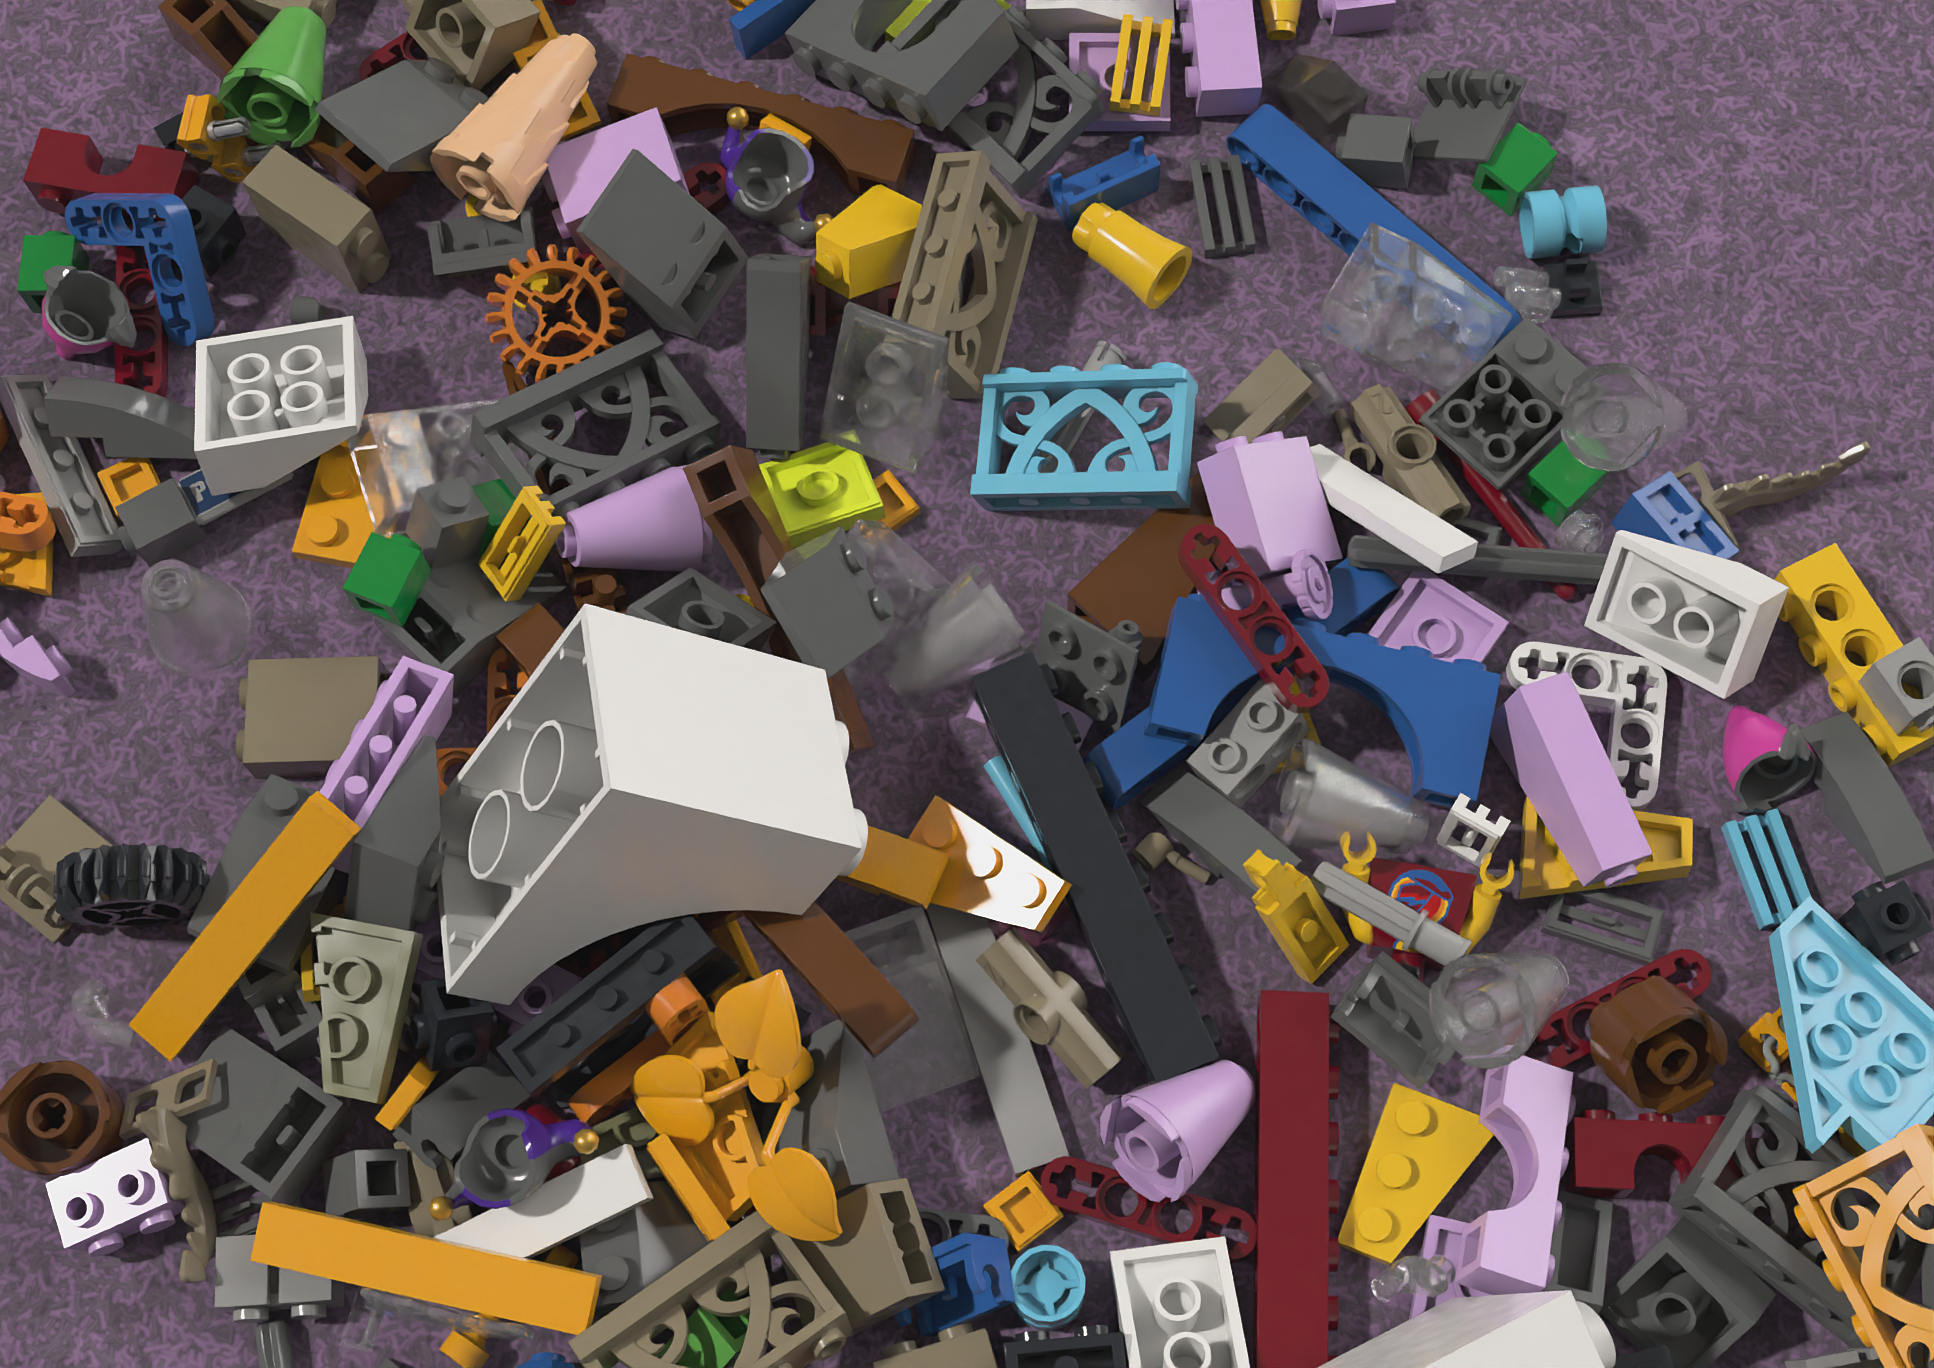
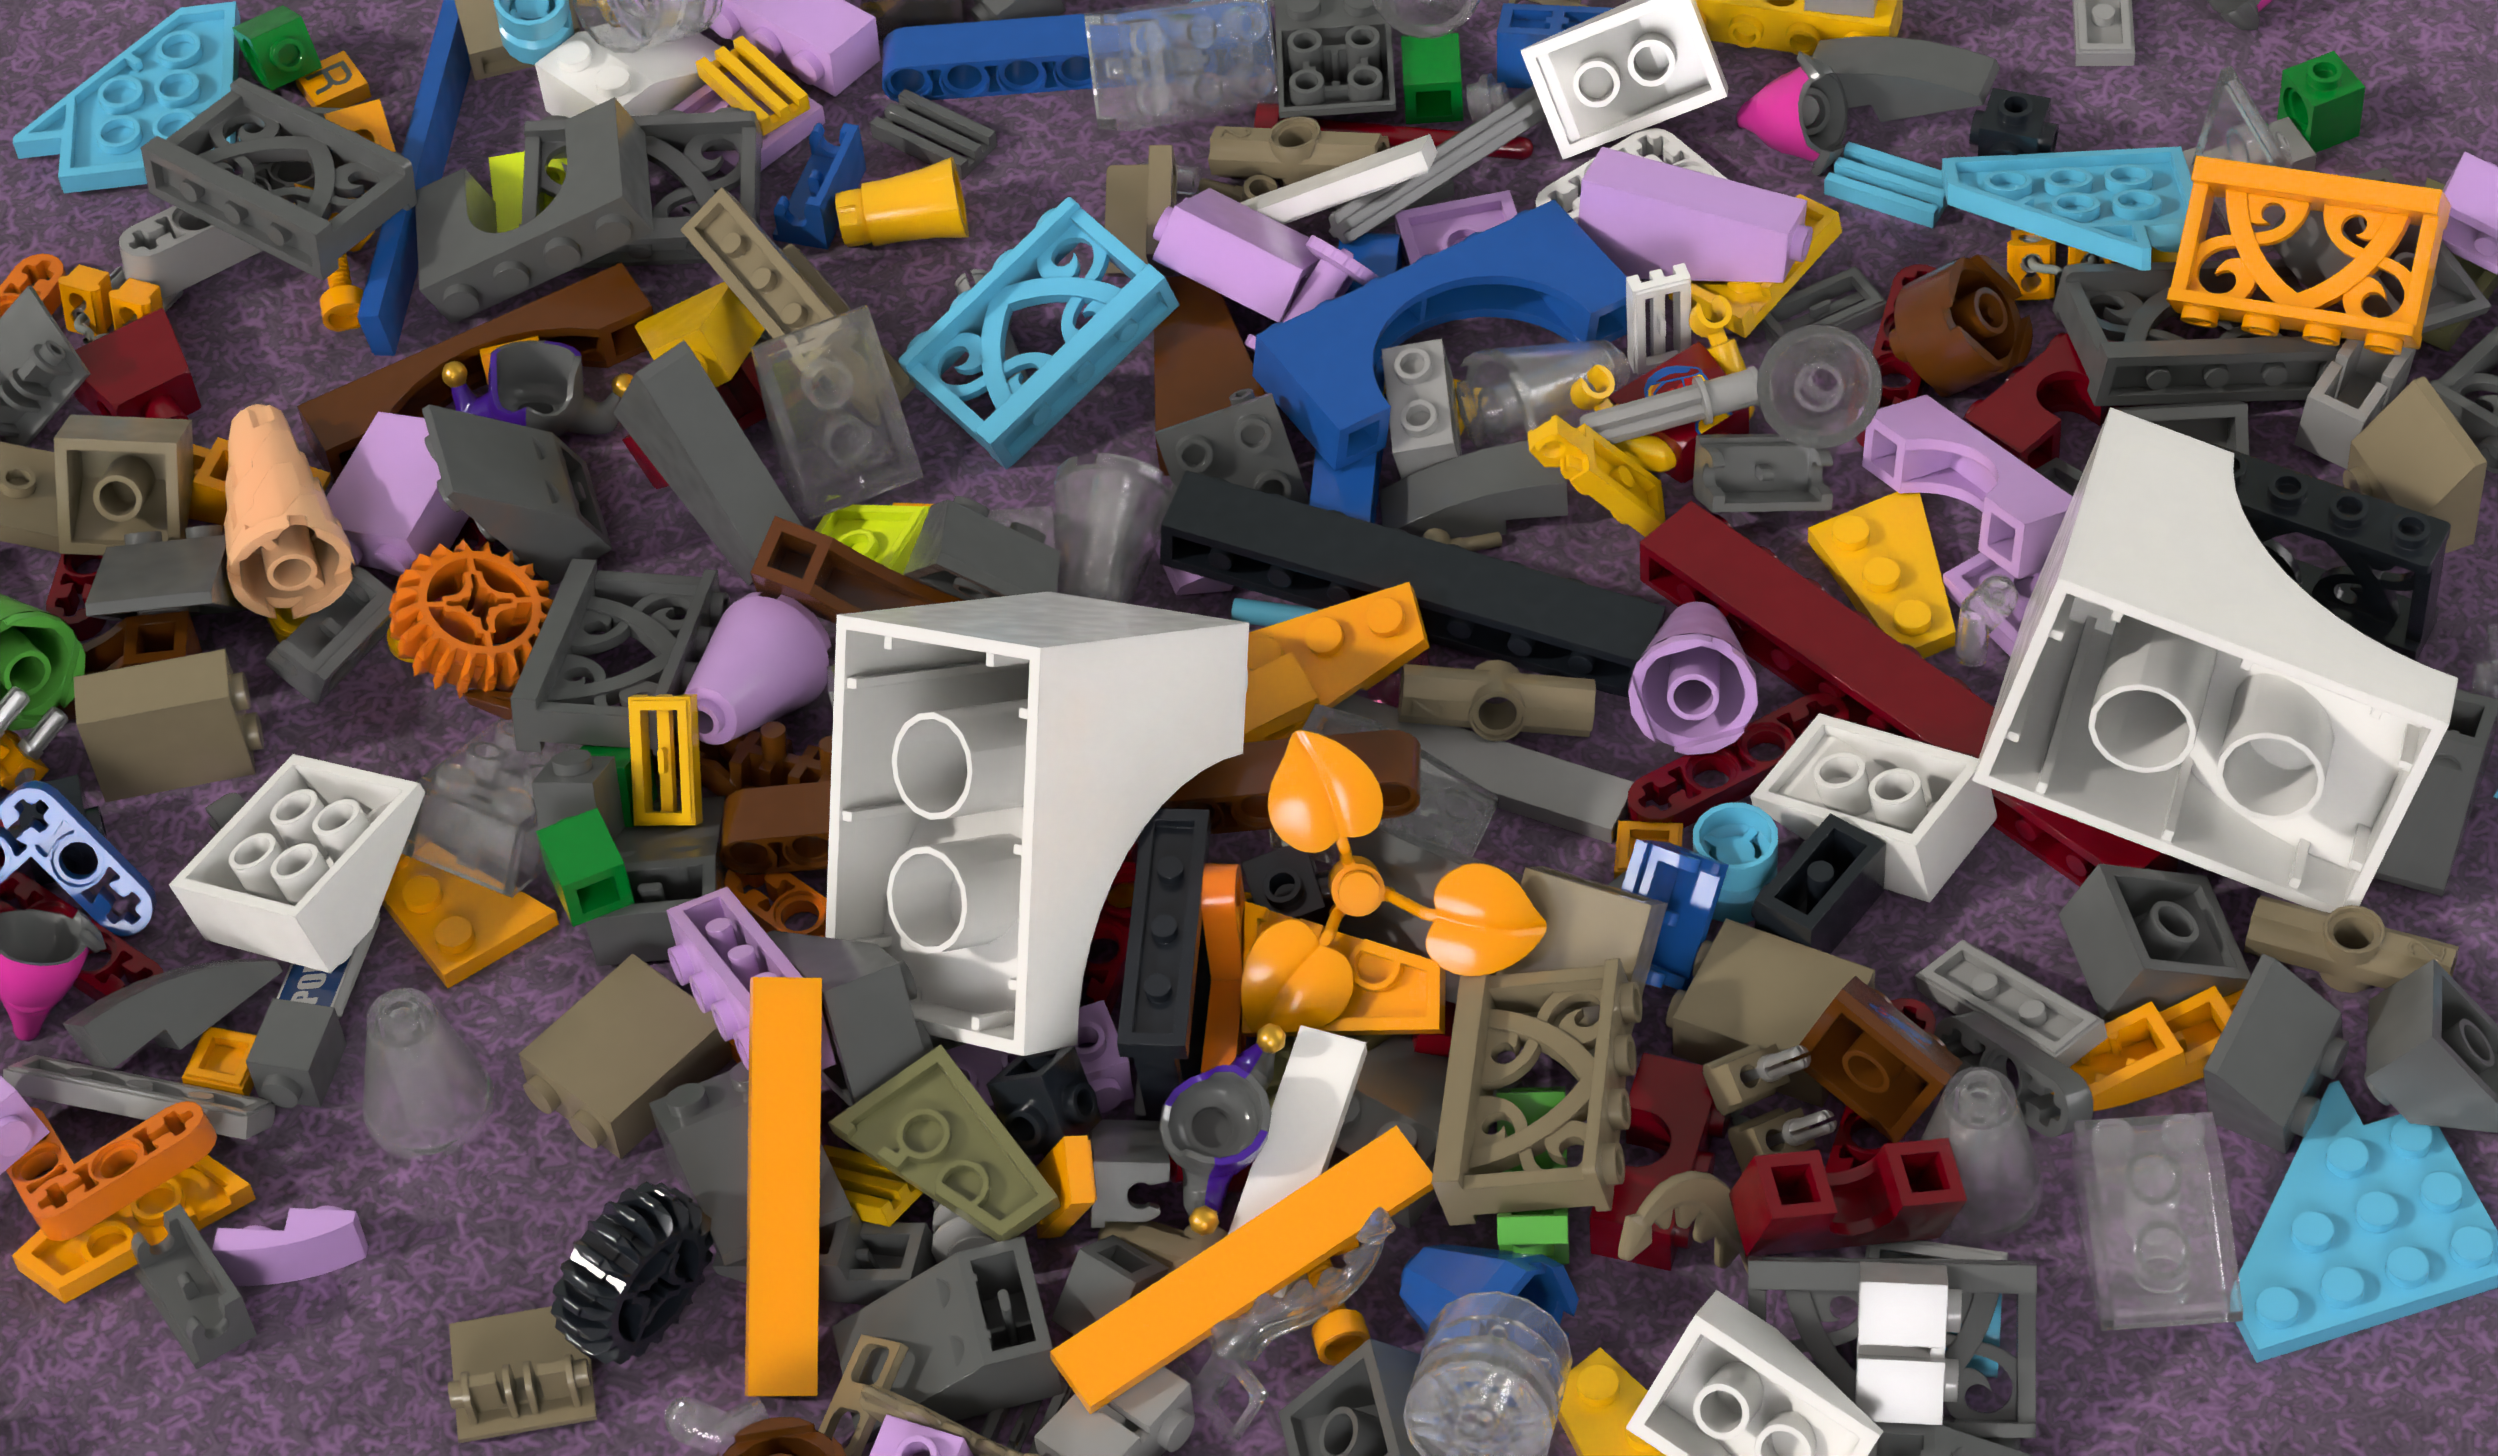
camera: 45 degrees left, 20 degrees down
(687, 1187) = (1392, 1033): light orange tile -> none
(1260, 614) = (1333, 289): dark red beam -> none

